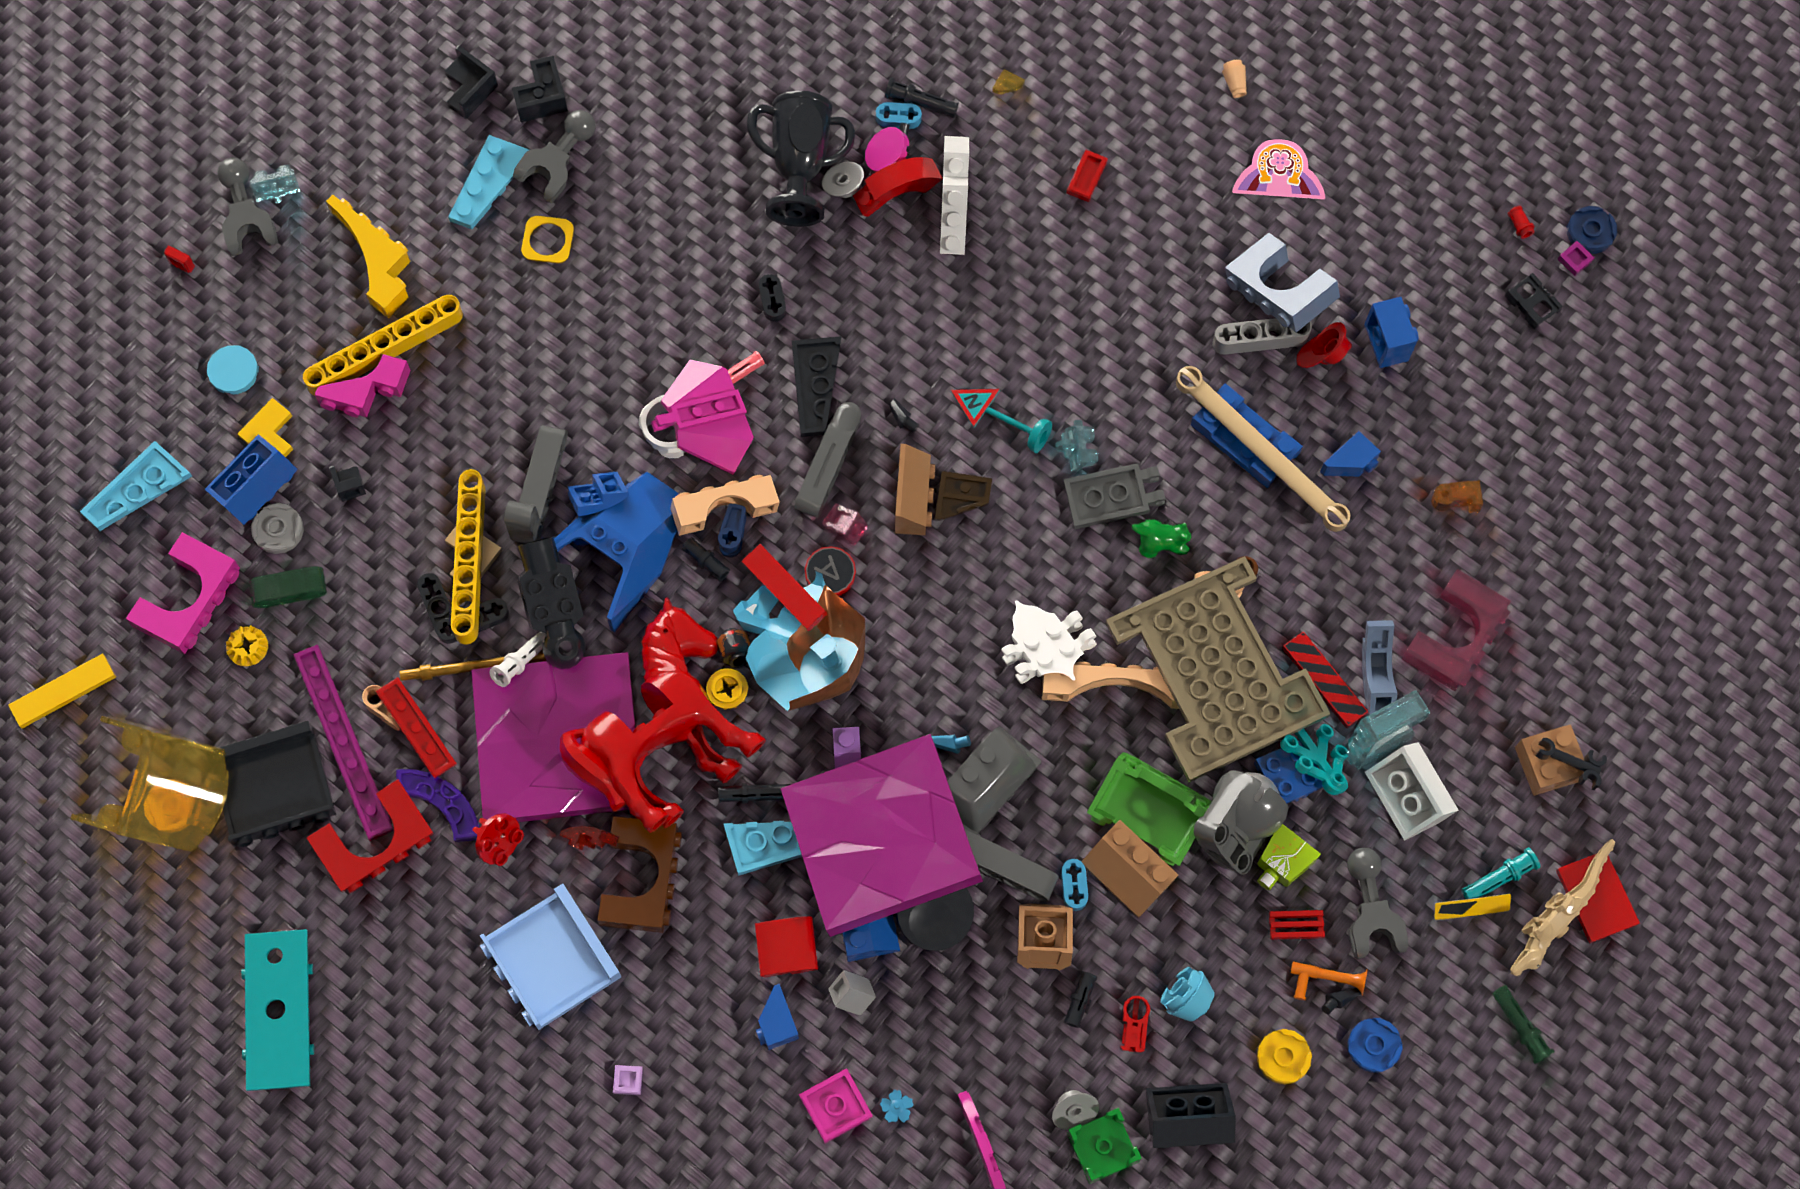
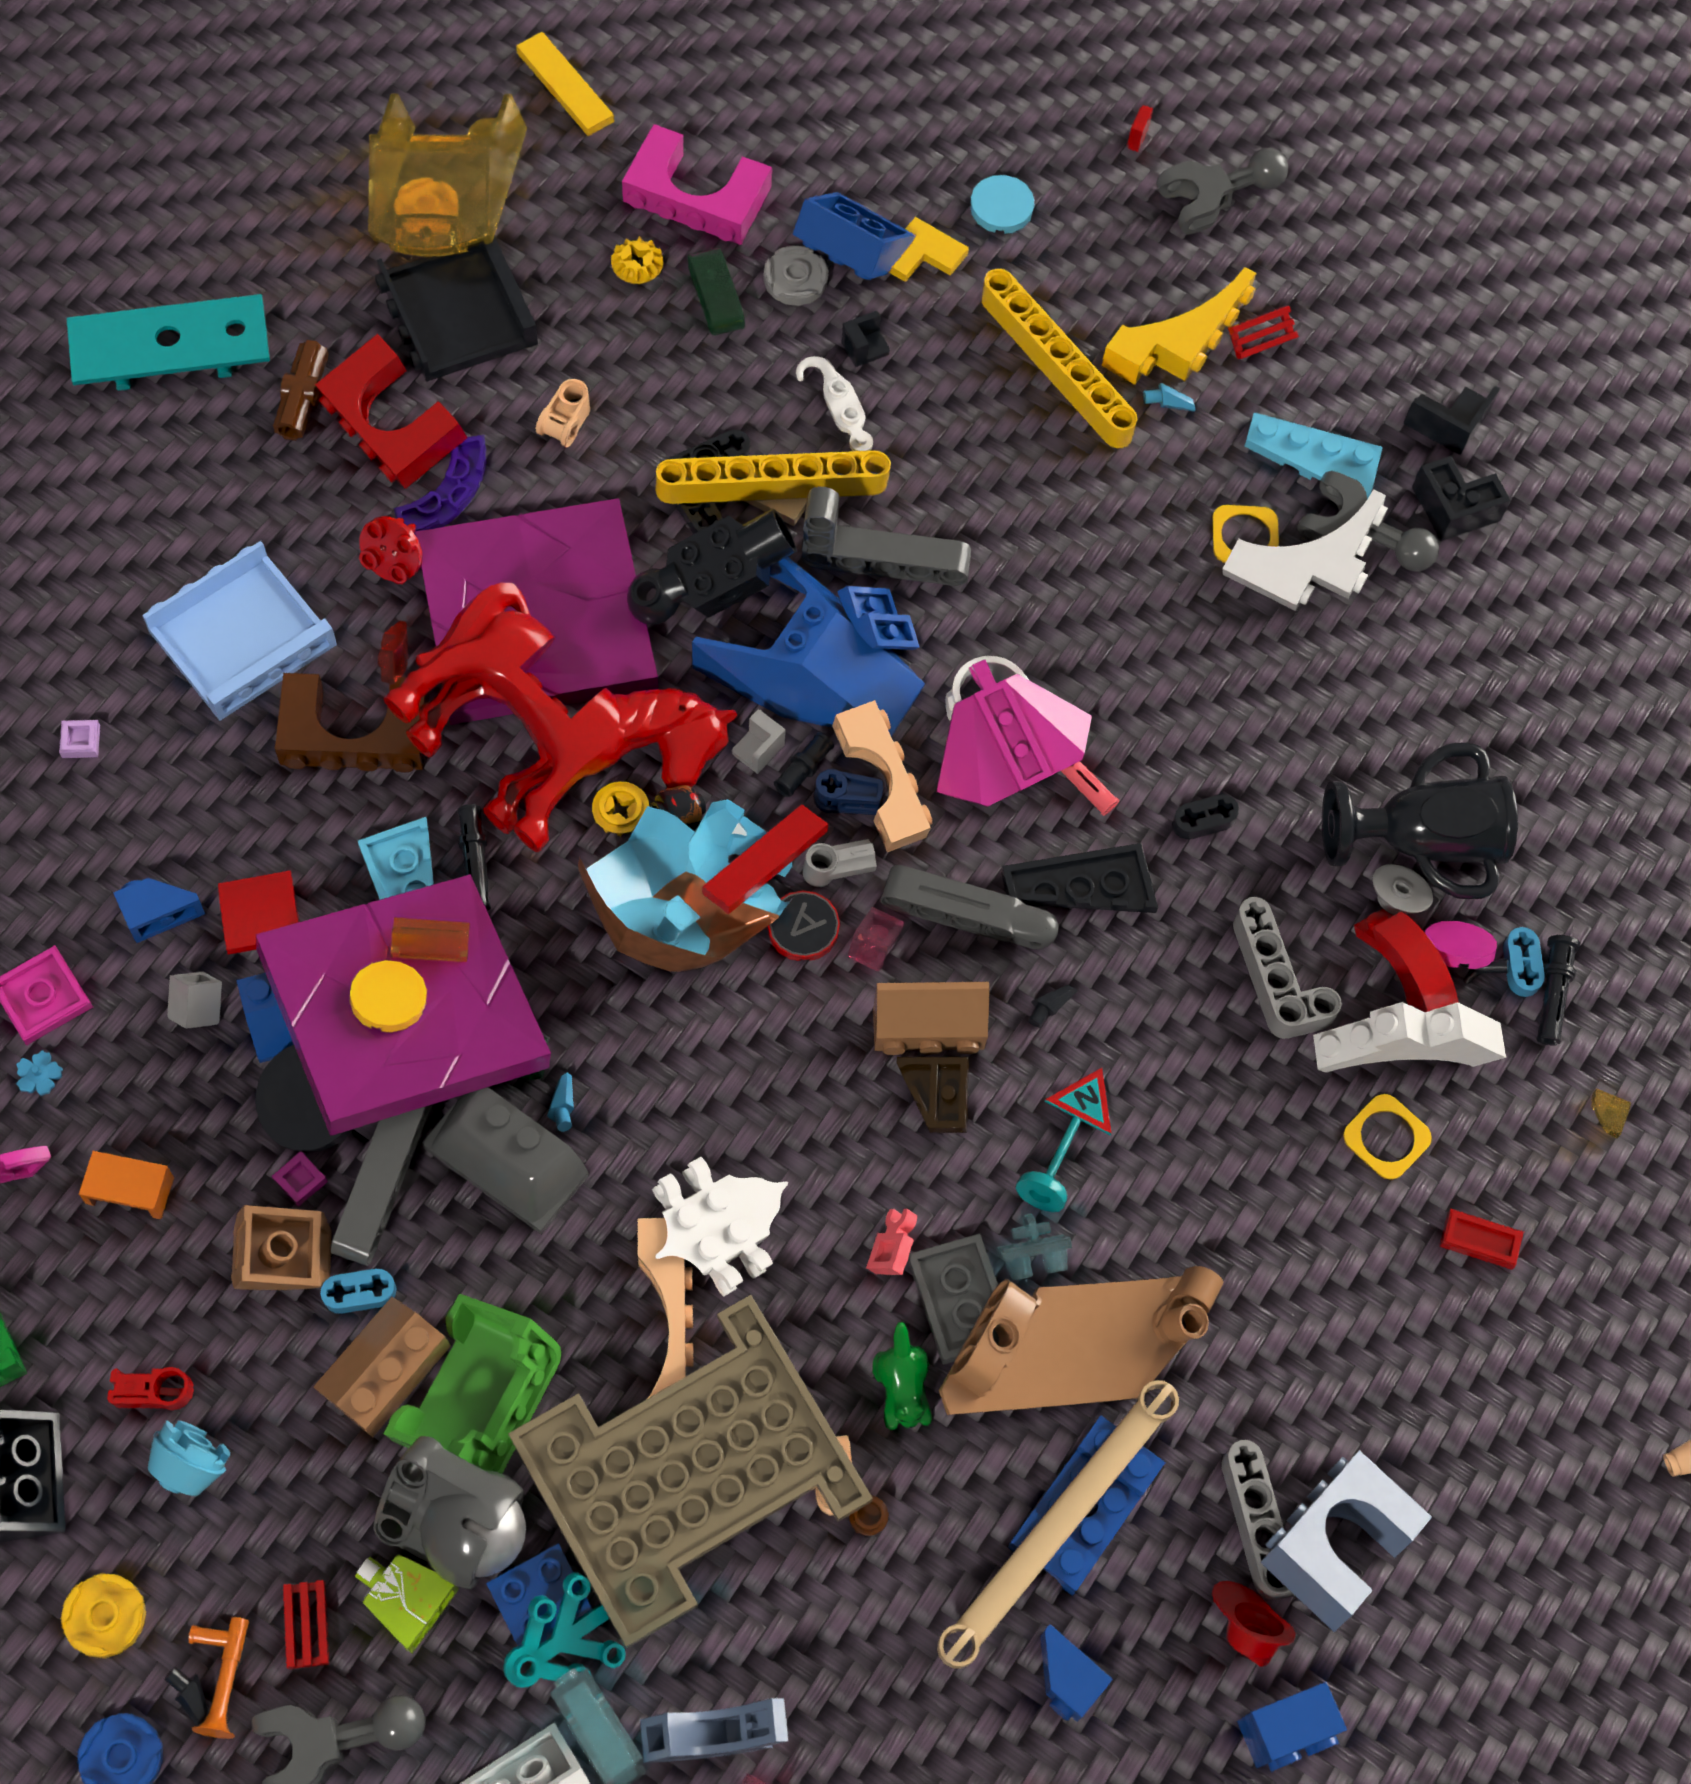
camera: 80 degrees right, 5 degrees down
(135, 486) = (835, 124): medium azure wing -> none
(275, 184) = (1260, 214): clear light blue hips -> none
(337, 907) = (299, 390): none -> reddish brown piece
(343, 742) = (531, 369): magenta tile -> none
(357, 394) = (986, 340): dark pink arch -> none
(382, 200) = (1286, 324): none -> red tile
(400, 504) = (841, 402): none -> white piece
(416, 728) = (534, 443): red tile -> none
(426, 274) = (1168, 398): none -> dark azure bar
(427, 672) = (617, 458): pearl gold bar -> none
(515, 662) = (625, 539): white pin -> none
(586, 181) = (1328, 561): none -> white arch
(685, 588) = (760, 743): none -> light grey panel
(785, 541) = (841, 860): none -> light grey piece
(837, 810) = (430, 939): none -> clear orange panel
(846, 745) = (539, 963): medium lavender slope -> none
(883, 837) = (388, 996): none -> yellow tile
(891, 265) = (1279, 968): none -> light grey beam
(989, 1039) = (127, 1183): none -> orange panel
(992, 921) = (299, 1179): none -> magenta plate
(1009, 241) = (1385, 1169): none -> yellow piece
(1071, 535) = (893, 1247): none -> coral plate
(1074, 1109) = (23, 1306): light grey piece -> none
(1080, 999) = (161, 1302): black pin -> none
(1142, 423) = (1076, 1342): none -> medium nougat panel
(1279, 170) = (1549, 1539): sticker -> none
(1326, 679) = (699, 1651): tile -> none

